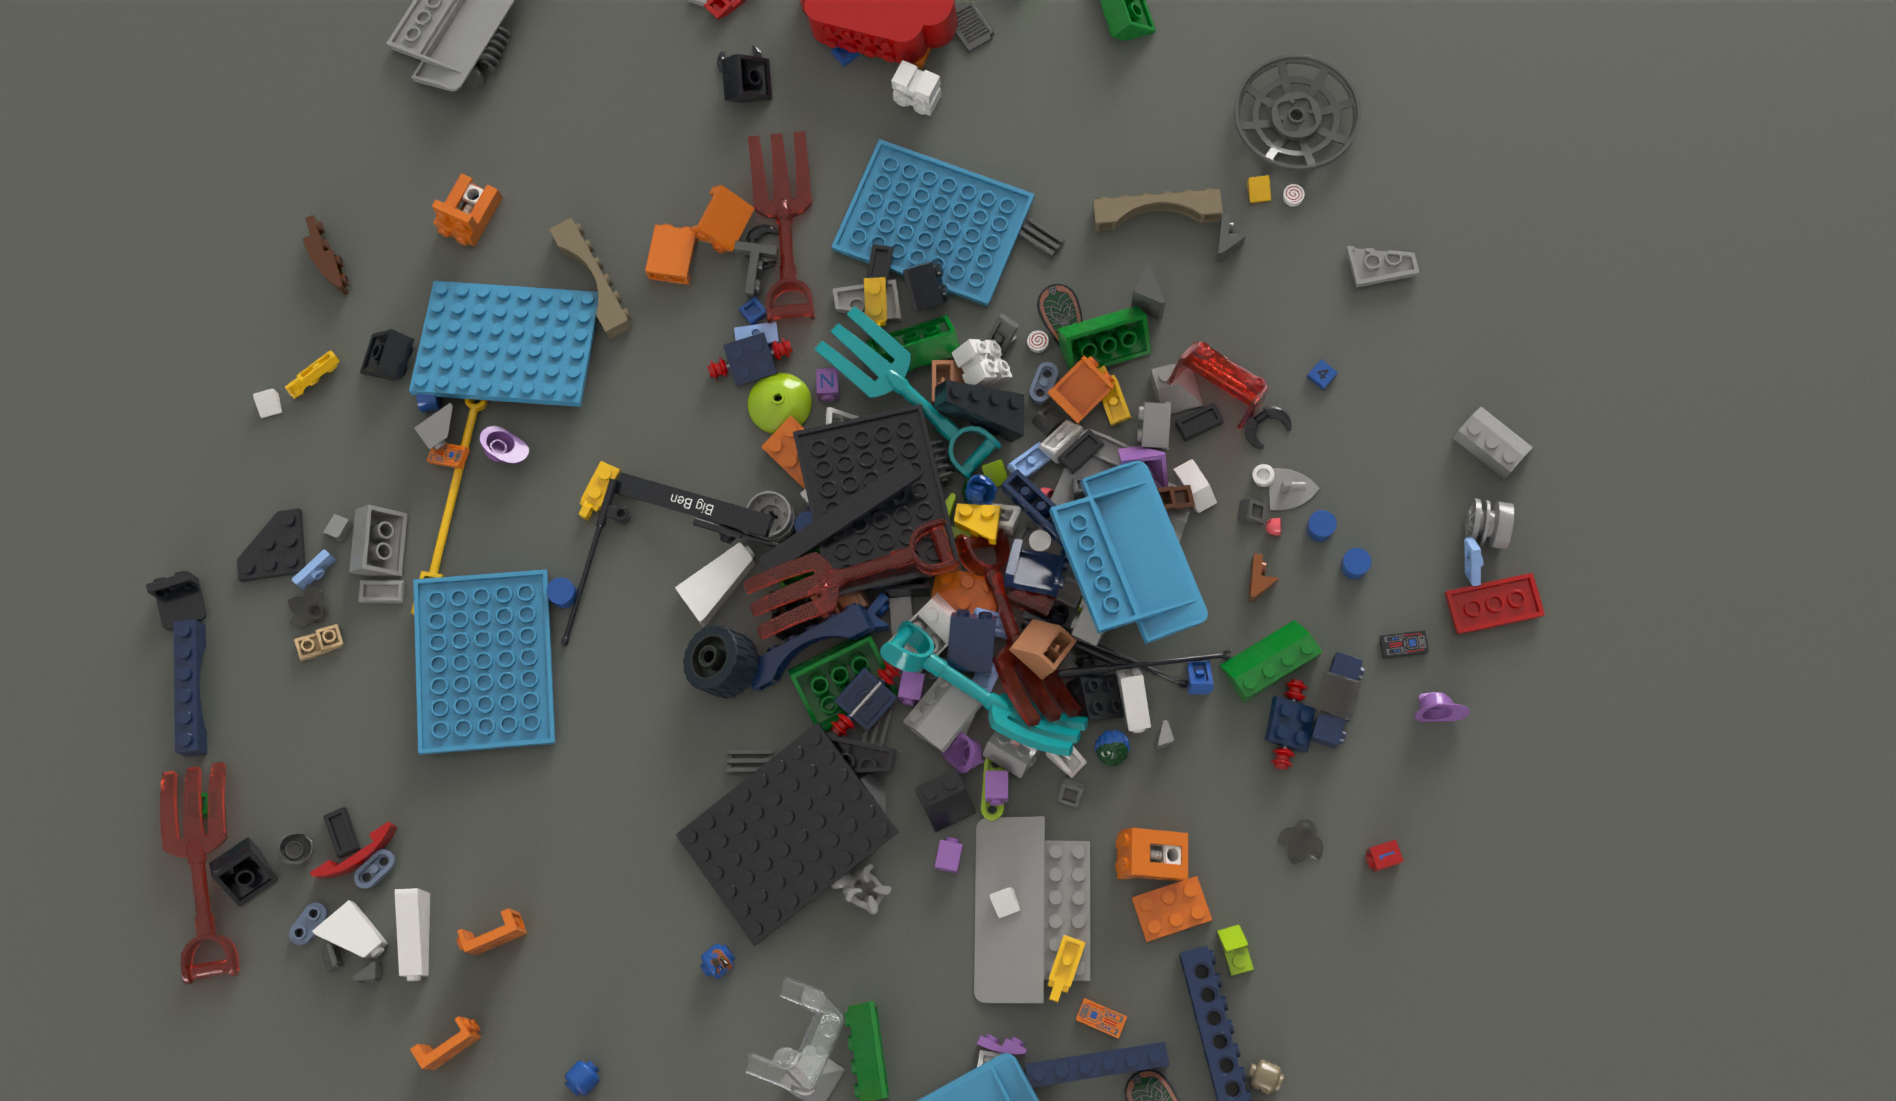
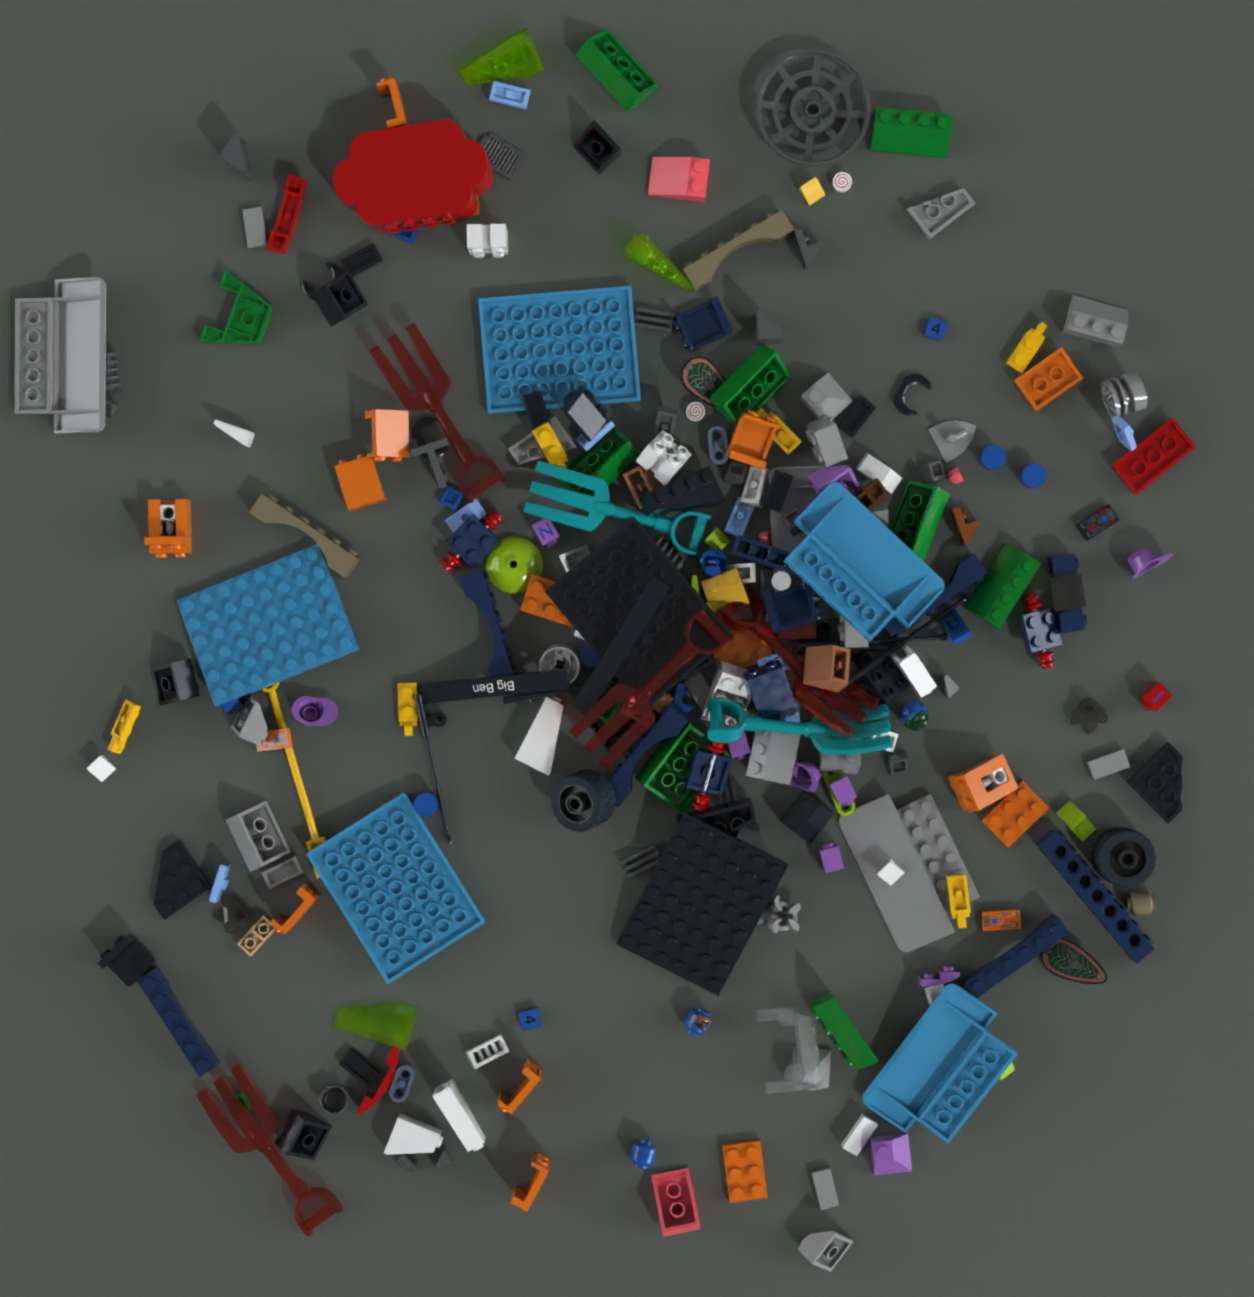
camera: 35 degrees left, 15 degrees up
(308, 923) = (374, 1147): sand blue plate -> none
(324, 257) = (80, 629): reddish brown slope -> none
(338, 527) = (218, 839): light grey slope -> none
(373, 635) = (309, 895): none -> orange panel
(392, 796) = (382, 1023): none -> clear neon green wedge
(481, 890) = (475, 1064): none -> white slope
(544, 869) = (530, 1019): none -> blue tile
(584, 157) = (241, 435): none -> white slope
(648, 61) = (247, 319): none -> green wing
(729, 407) = (476, 589): none -> dark blue arch
(787, 58) = (361, 260): none -> black tile
(927, 315) = (608, 425): none -> light blue plate
(1064, 173) = (647, 255): none -> clear neon green wedge
(1067, 57) = (597, 147): none -> black slope
(1087, 263) = (703, 325): none -> dark blue panel
(1134, 120) = (679, 178): none -> coral slope
(1217, 546) = (918, 515): none -> green slope
(1225, 375) = (866, 372): clear red windscreen -> none
(1239, 628) = (964, 574): none -> dark blue arch
(1263, 475) = (927, 437): white tile -> none
(1269, 1013) = (1124, 857): none -> wheel
(1299, 905) = (1108, 764): none -> light grey tile
(1349, 954) = (1161, 782): none -> black plate
(1385, 178) = (911, 132): none -> green slope
(1409, 436) = (1027, 348): none -> yellow hinge
(1416, 475) = (1048, 379): none -> orange plate

